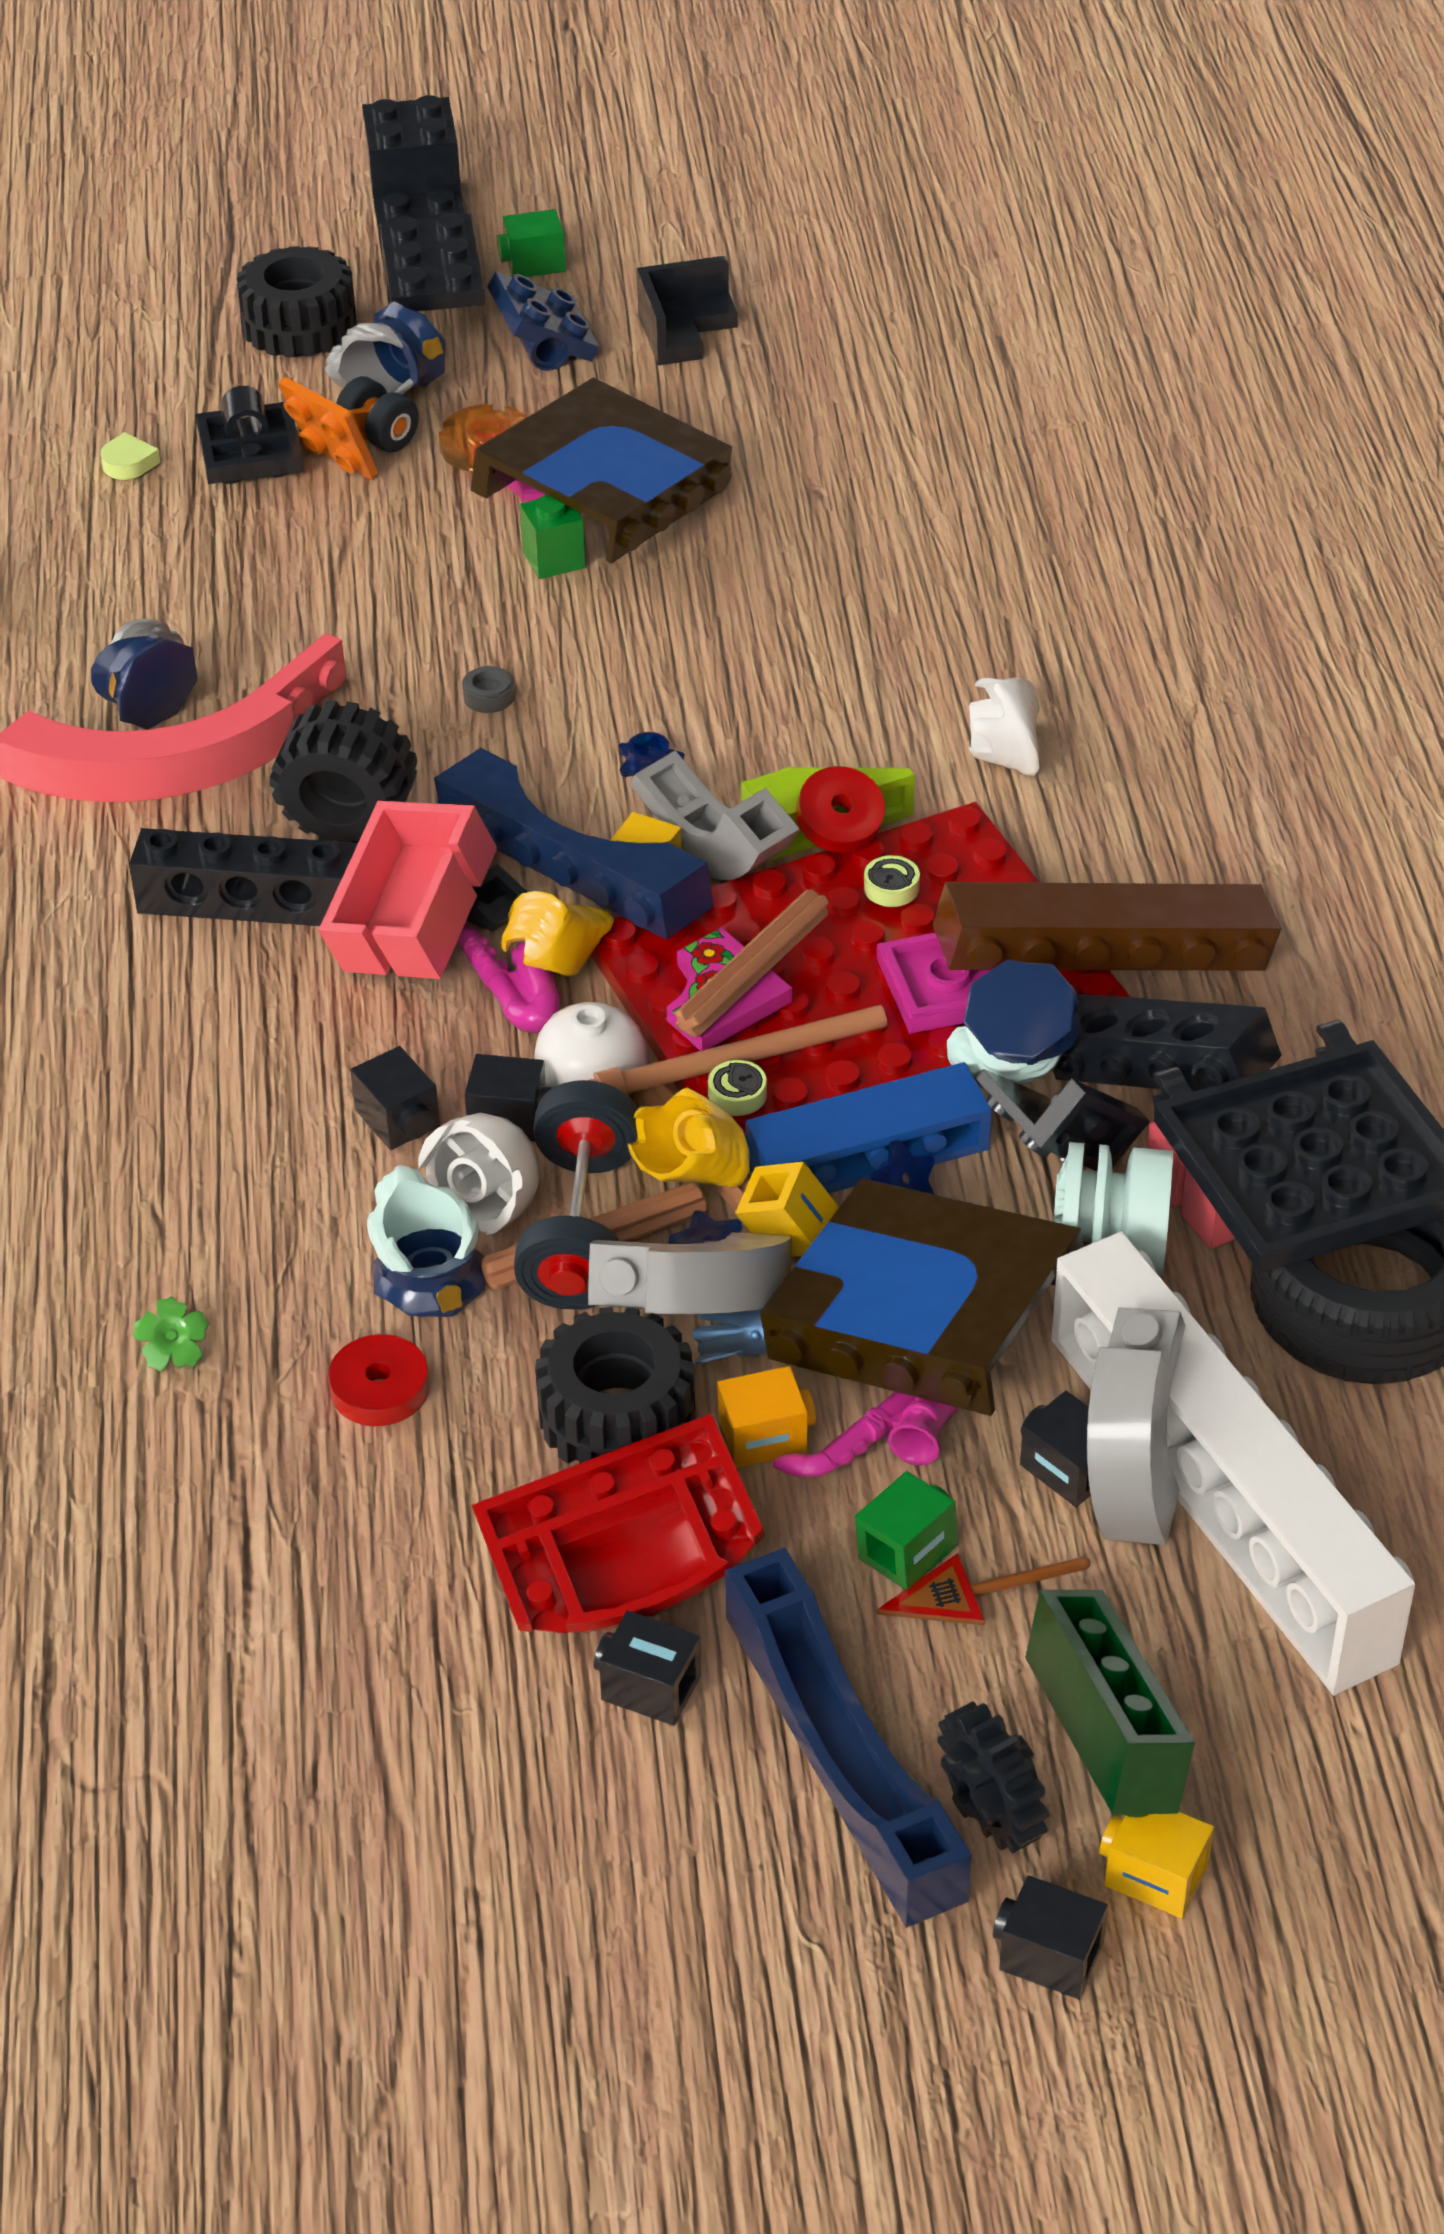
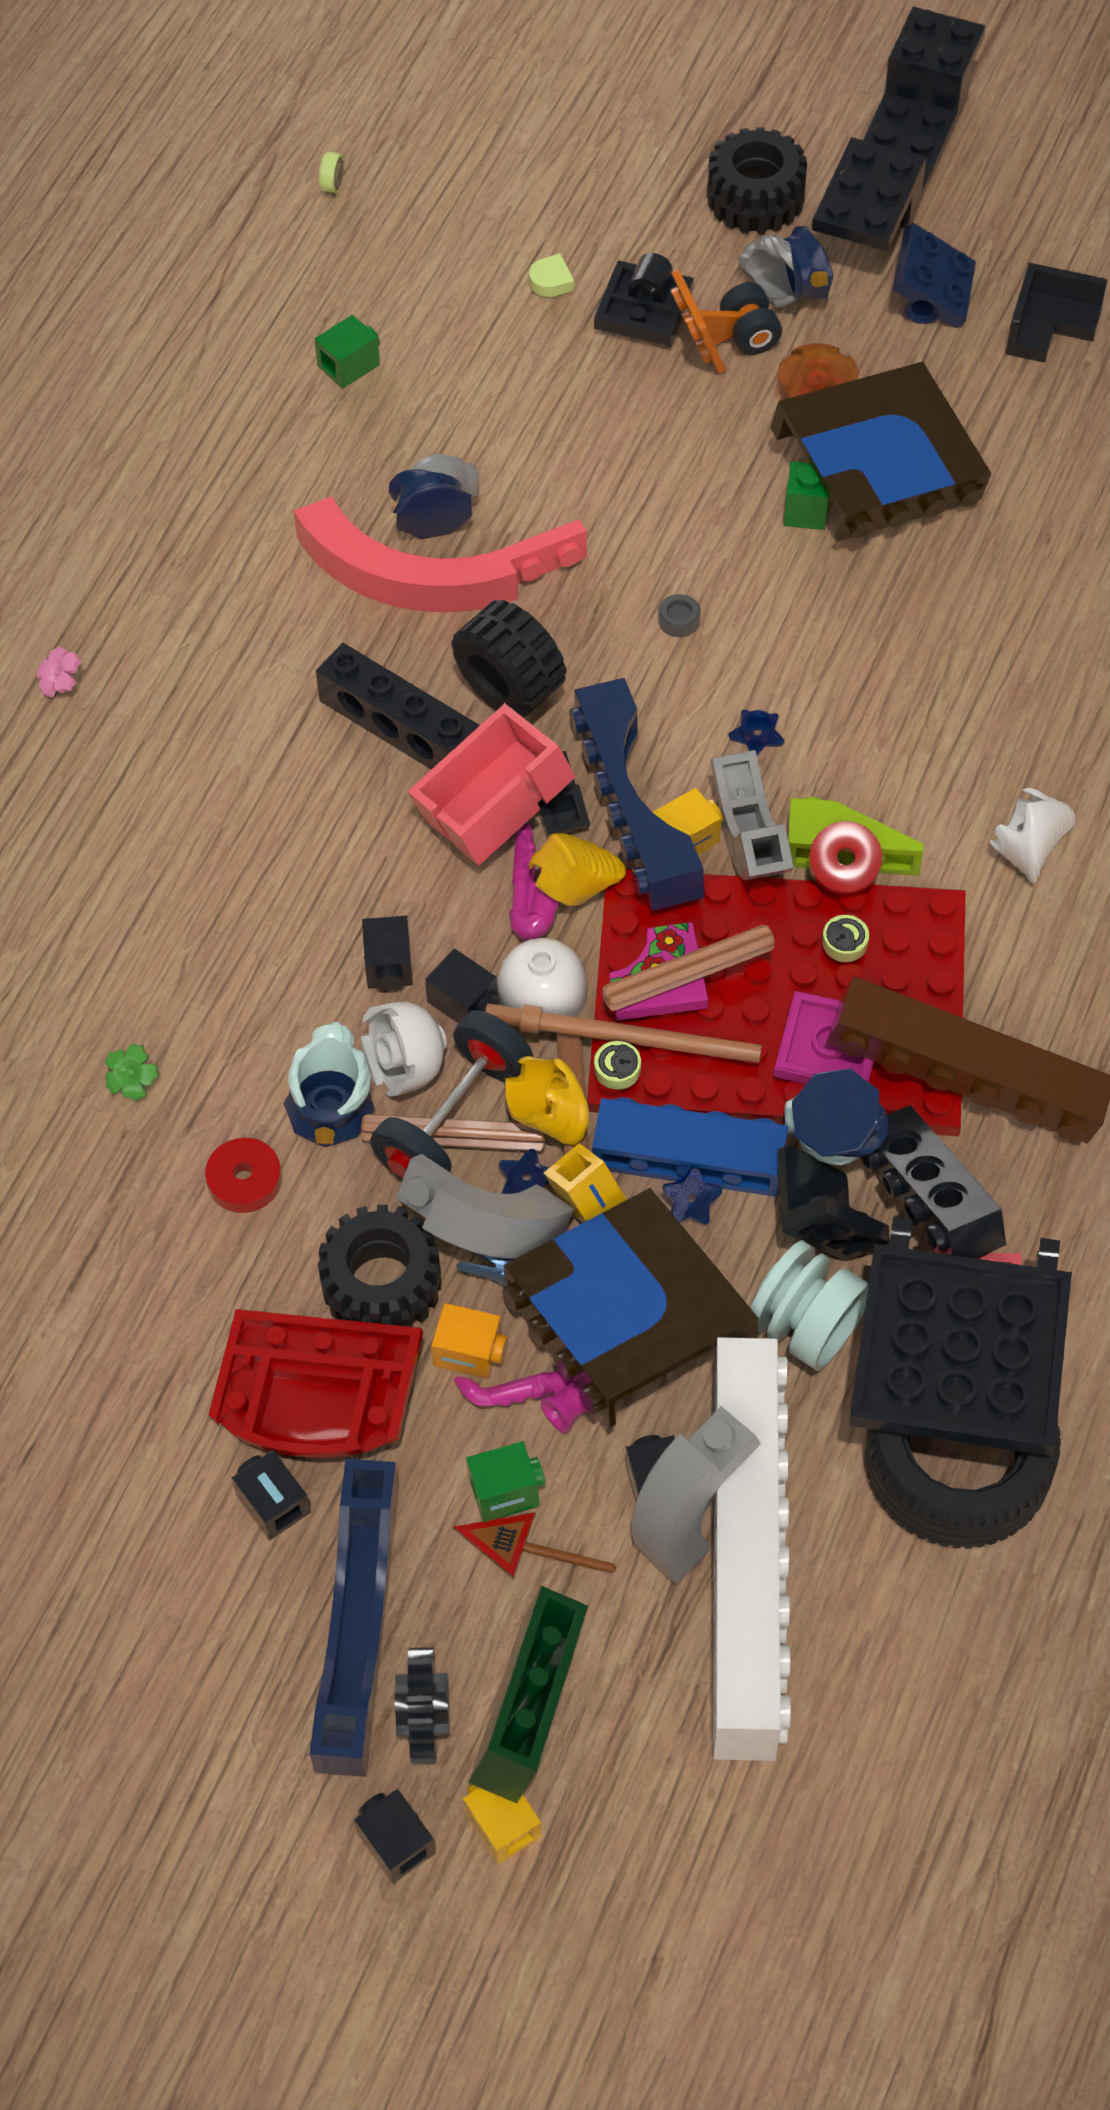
camera: 30 degrees right, 15 degrees up
(532, 243) = (976, 194): green brick -> none

